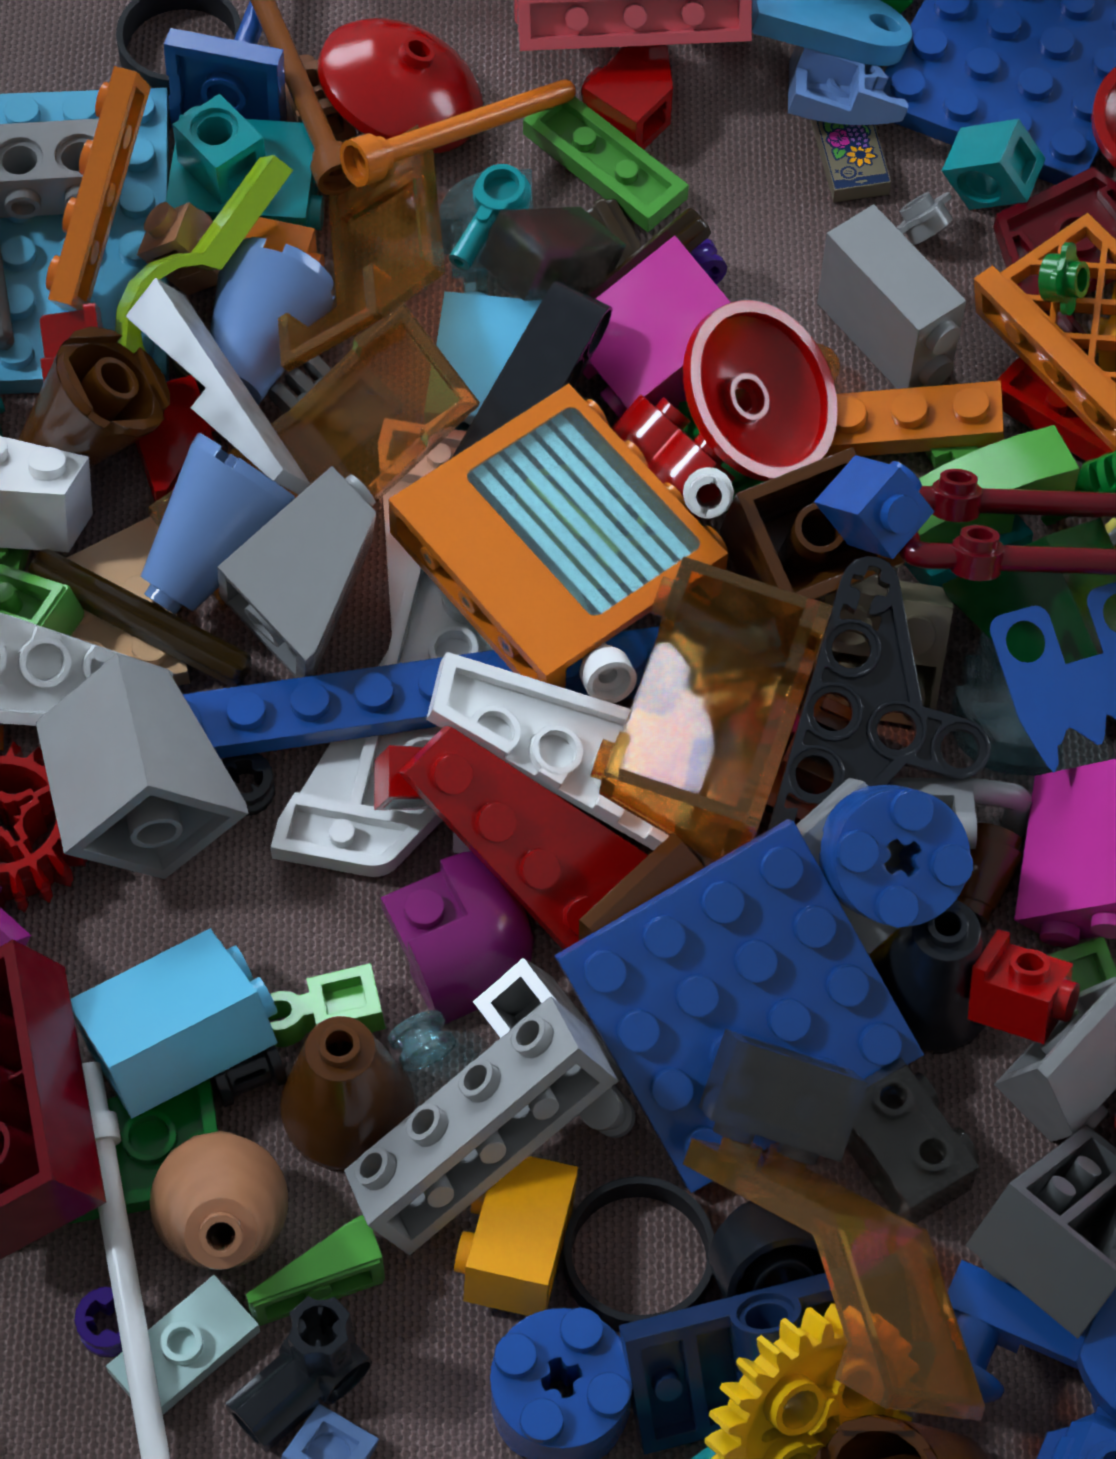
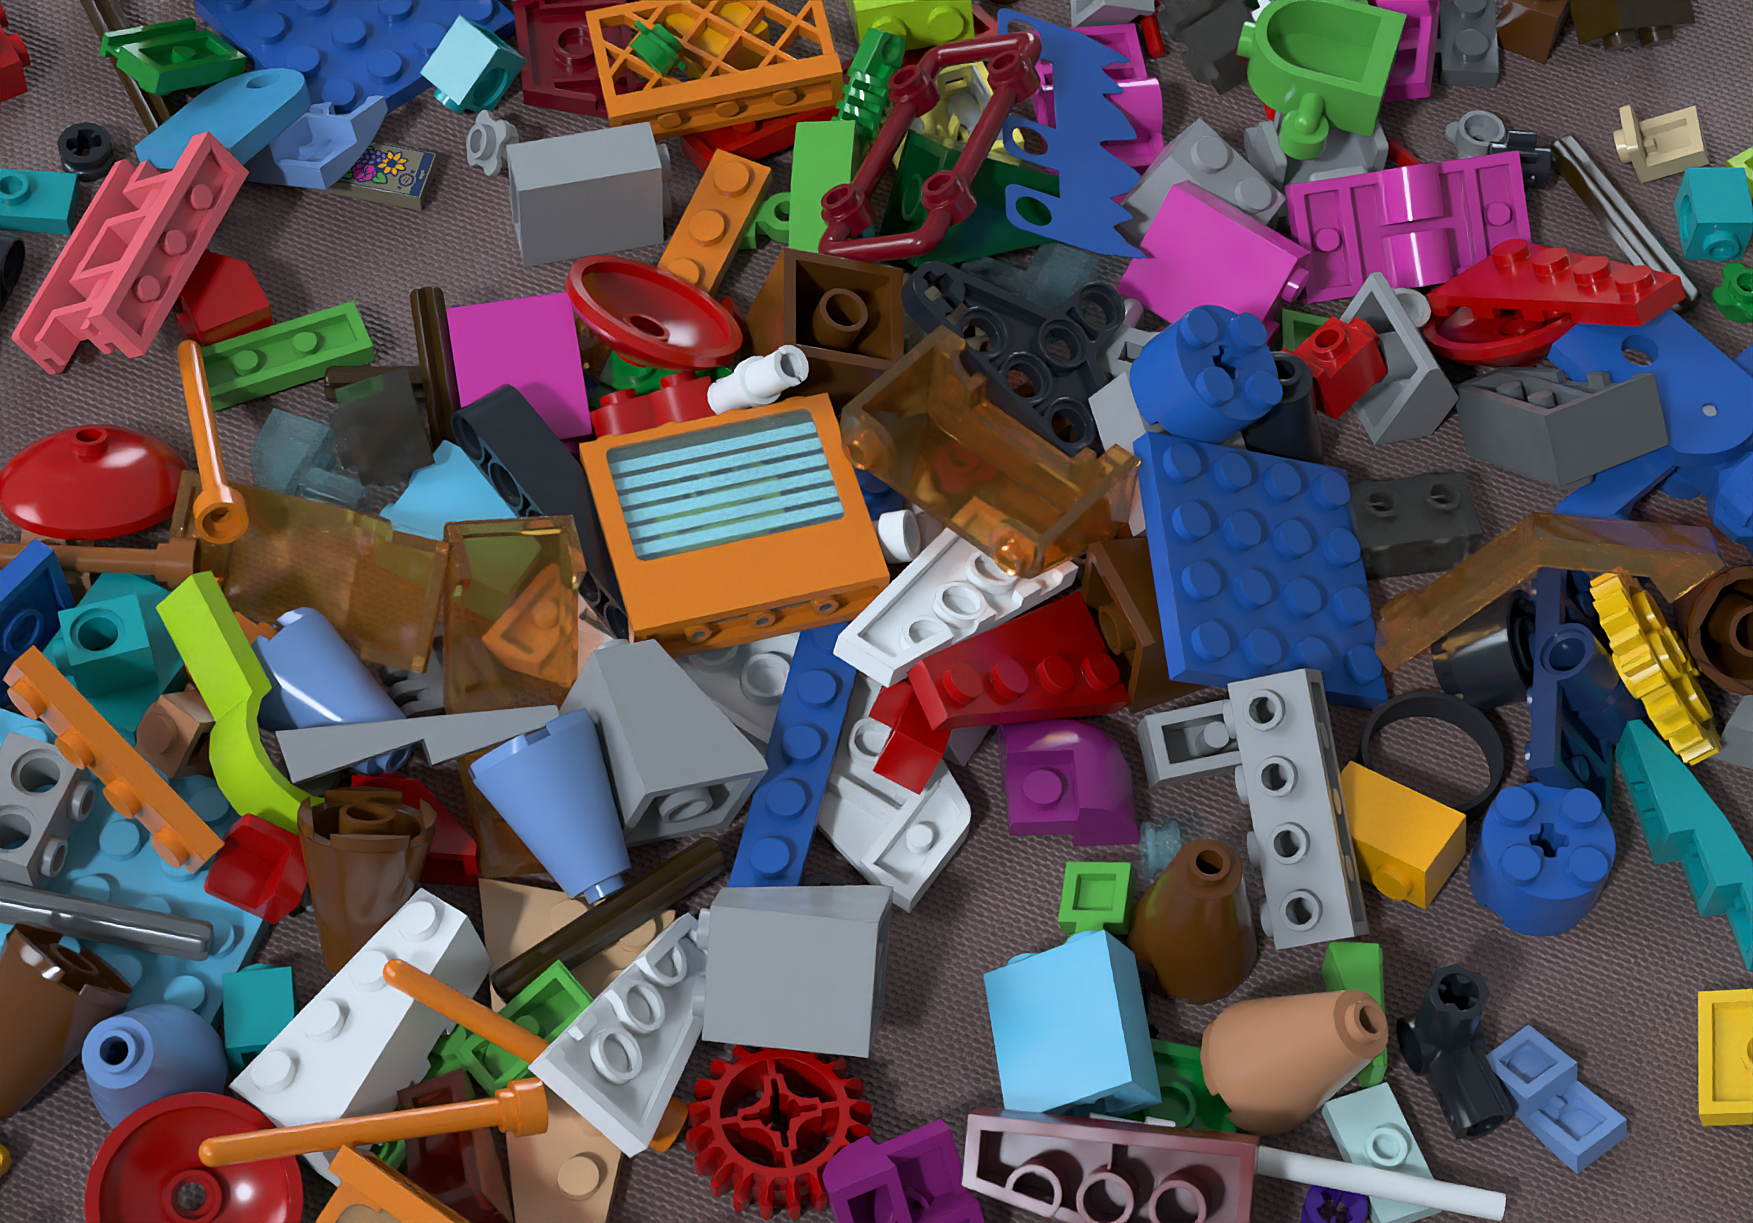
camera: 70 degrees left, 5 degrees down
(495, 190) = (304, 437): teal plate -> none
(781, 1098) = (1369, 568): clear smoke brick -> none
(875, 505) = (869, 245): blue brick -> none

